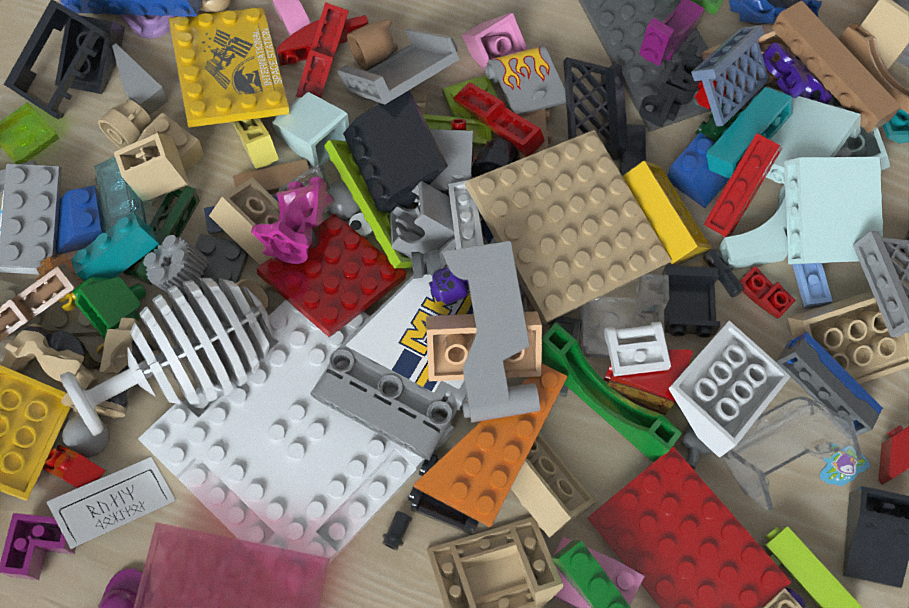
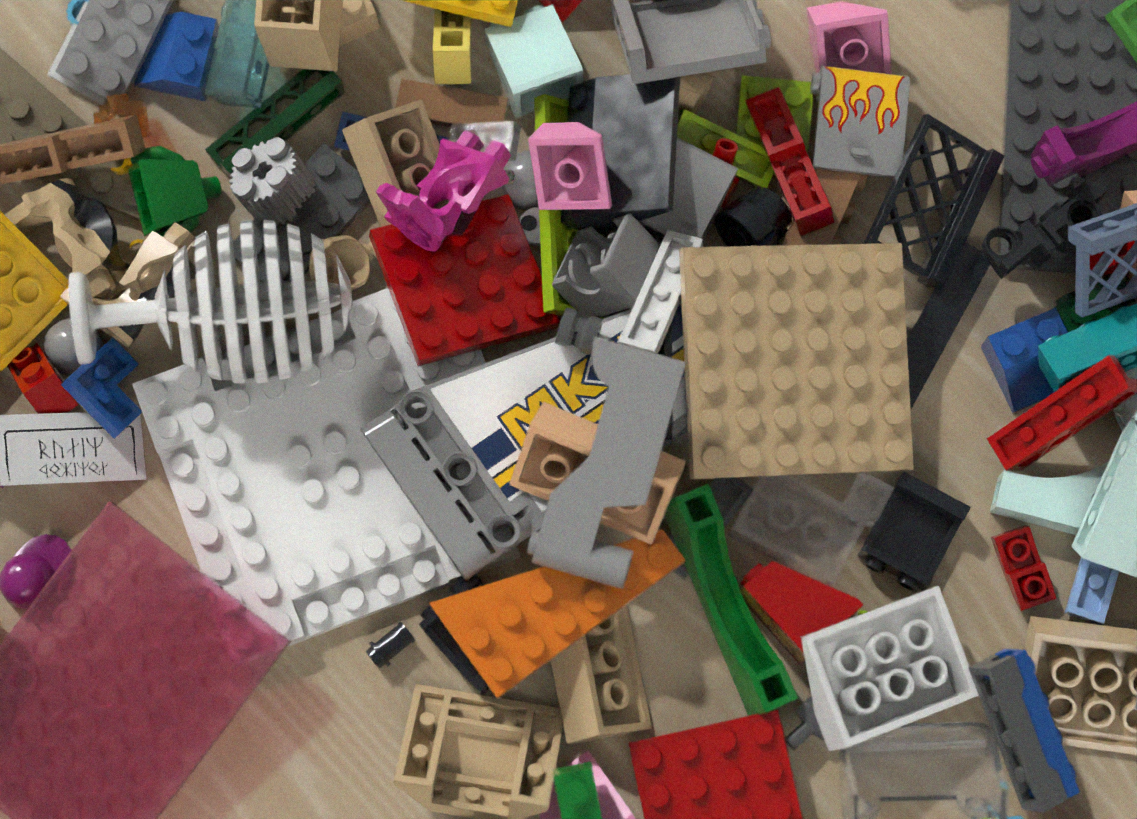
camera: 30 degrees right, 10 degrees up
(114, 453) = (97, 390): none -> blue plate
(115, 249) = (206, 122): teal brick -> none
(370, 169) = (569, 167): none -> bright pink slope
(448, 287) = (582, 376): dark purple head -> none
(637, 356) = (788, 580): white plate -> none
(666, 212) = (947, 397): yellow slope -> none
(725, 273) = (981, 515): black axle -> none

